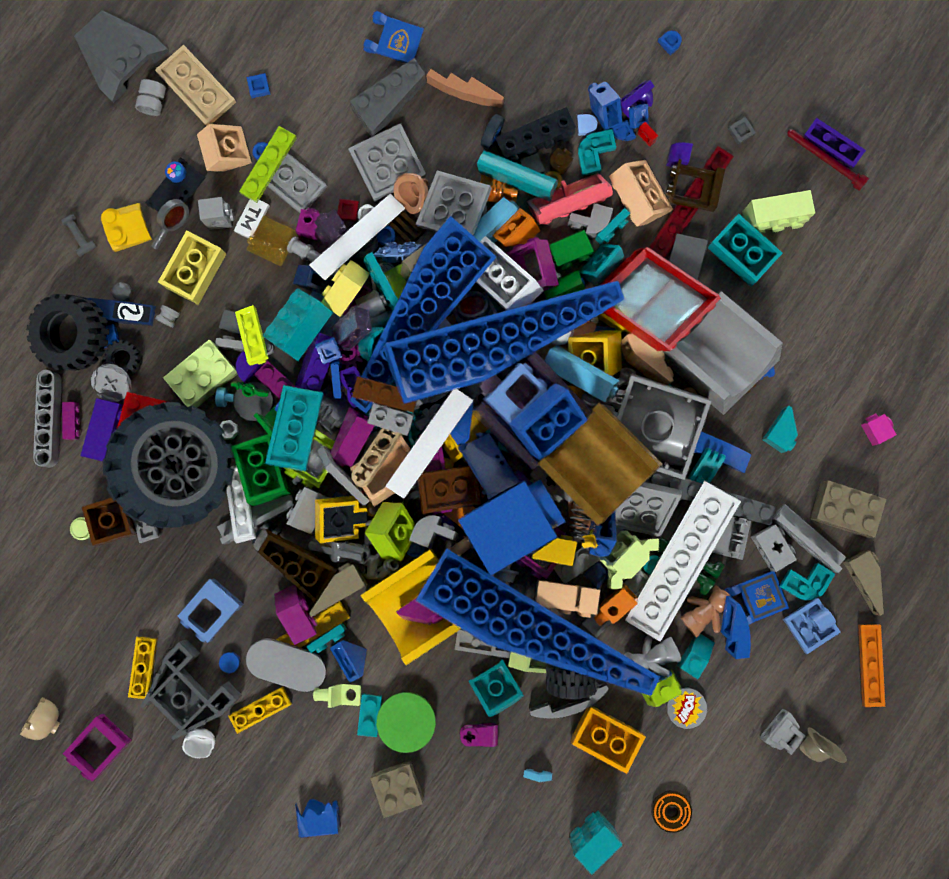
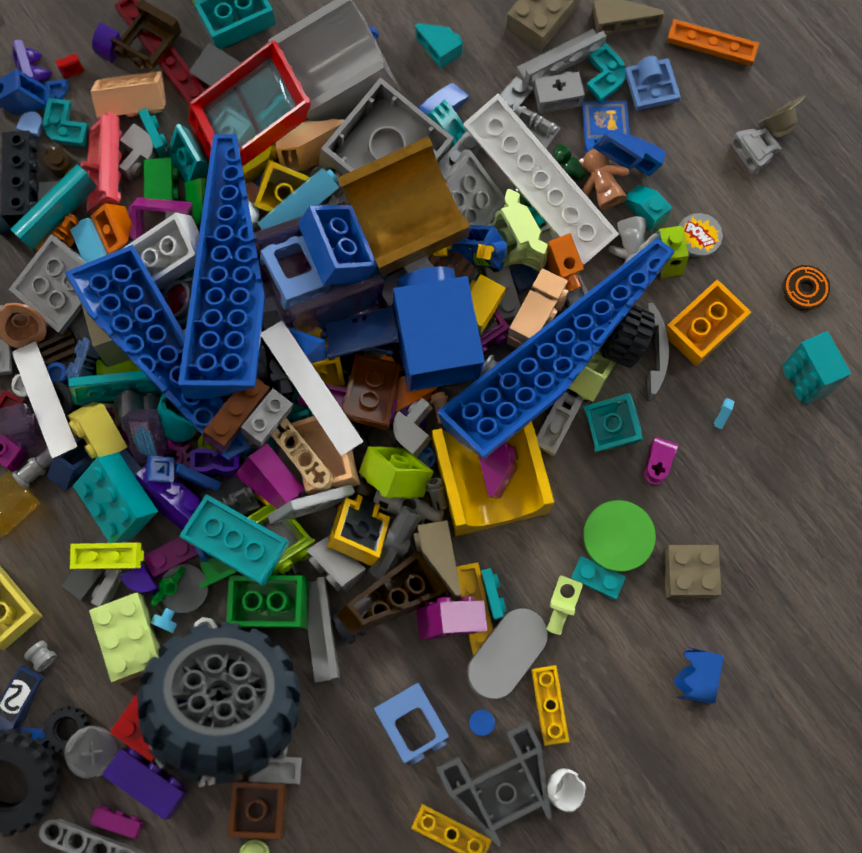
camera: 70 degrees left, 10 degrees down
(240, 510) = (307, 642): white tile -> none
(350, 658) = (526, 578): blue slope -> none
(638, 115) = (45, 67): blue tile -> none

